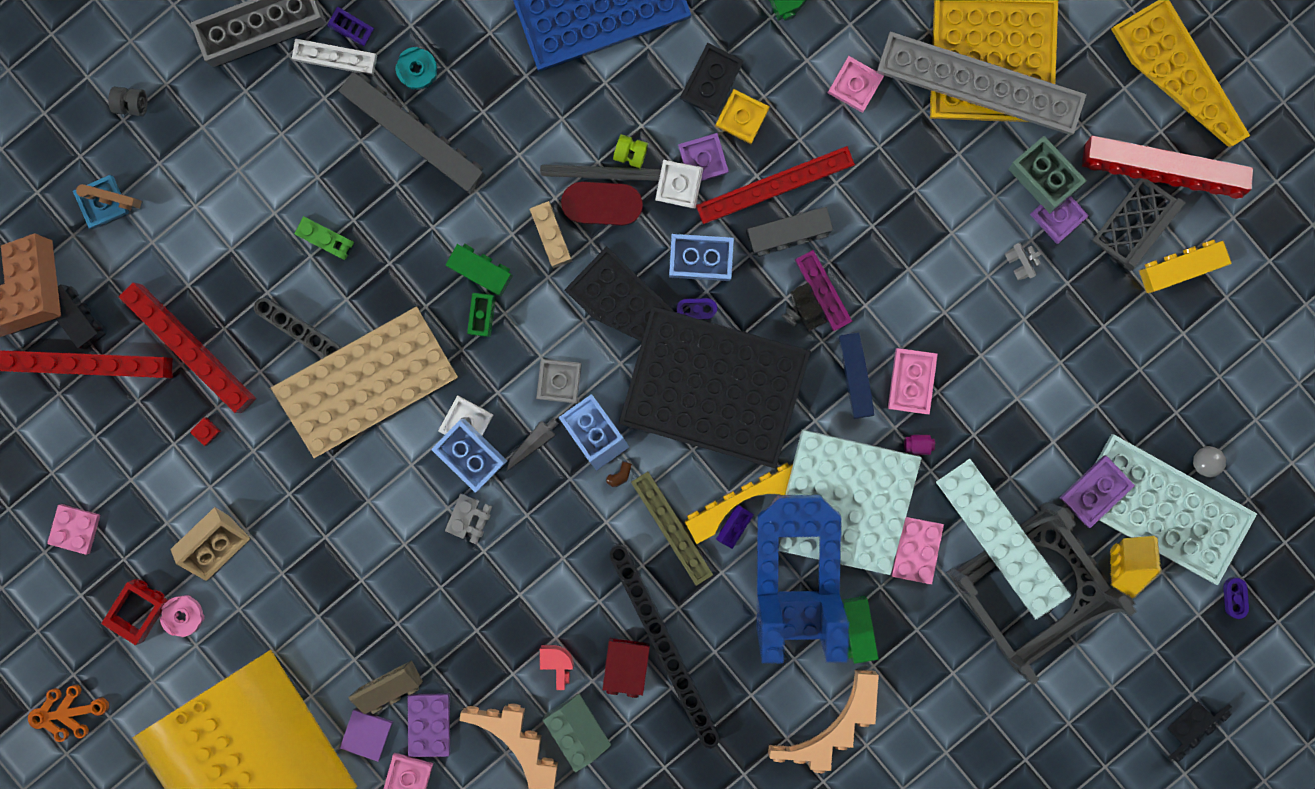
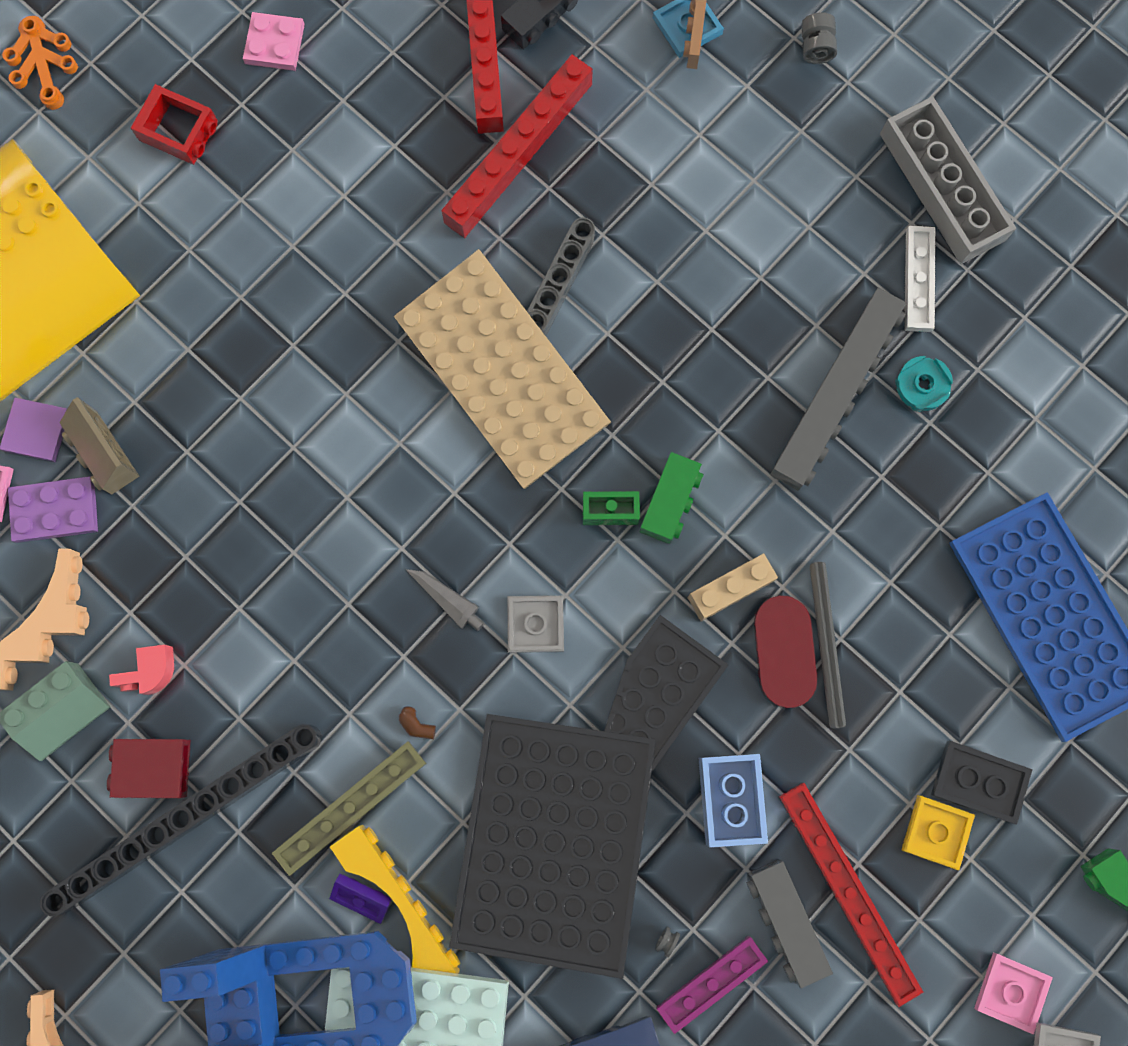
camera: 85 degrees right, 10 degrees down
(193, 612) = (181, 193): bright pink plate -> none
(205, 431) = (414, 181): red plate -> none
(209, 544) = (269, 202): tan slope -> none
(323, 237) = (683, 294): bright green plate -> none
(347, 33) = (970, 273): dark purple slope -> none
(462, 517) = (336, 518): light grey plate -> none
(469, 455) = (420, 516): light blue brick -> none
(473, 414) = (464, 507): white tile -> none
(594, 432) = (470, 681): light blue slope -> none
(624, 147) = (865, 671): lime wheel -> none
(679, 184) = (830, 755): white tile -> none
(696, 307) = (661, 803): dark purple plate -> none
(705, 153) = (870, 784): medium lavender plate -> none
(807, 306) = (685, 964): clear smoke brick -> none

